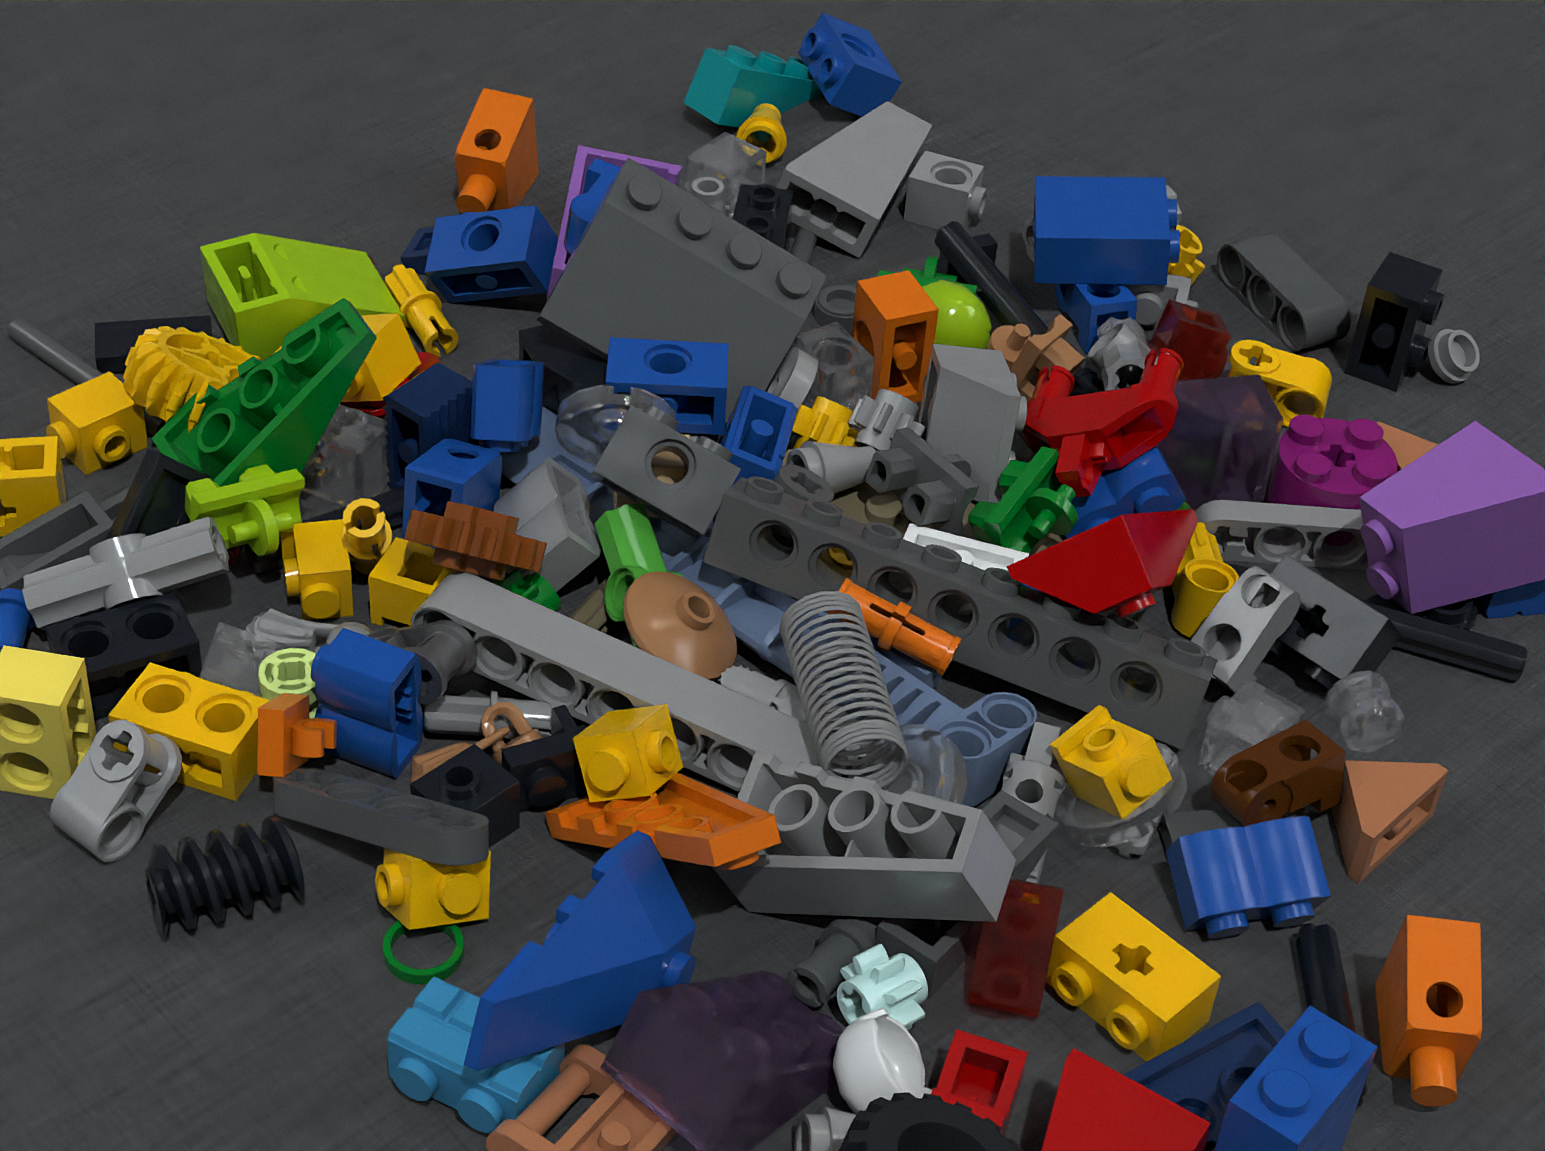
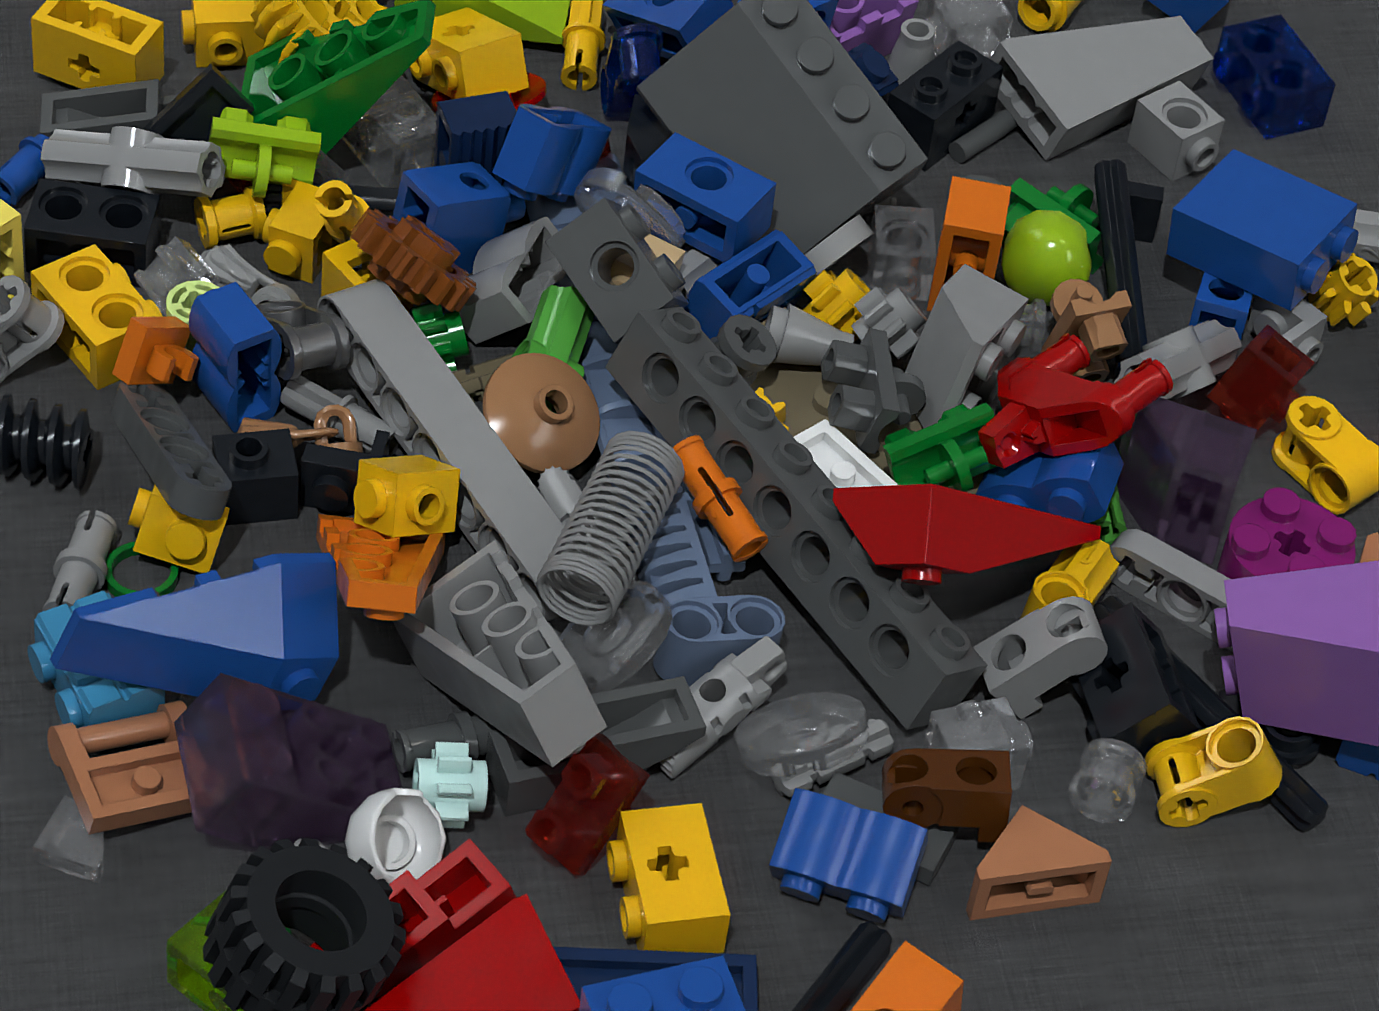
camera: 30 degrees right, 5 degrees up
(241, 588) = (229, 217): none -> yellow bush
(371, 970) = (82, 565): none -> light grey pin
(497, 314) = (630, 60): none -> clear blue piece
(976, 125) = (1273, 76): none -> clear blue brick
(1110, 763) = (793, 698): yellow brick -> none
(1430, 674) = (1211, 771): none -> yellow piece

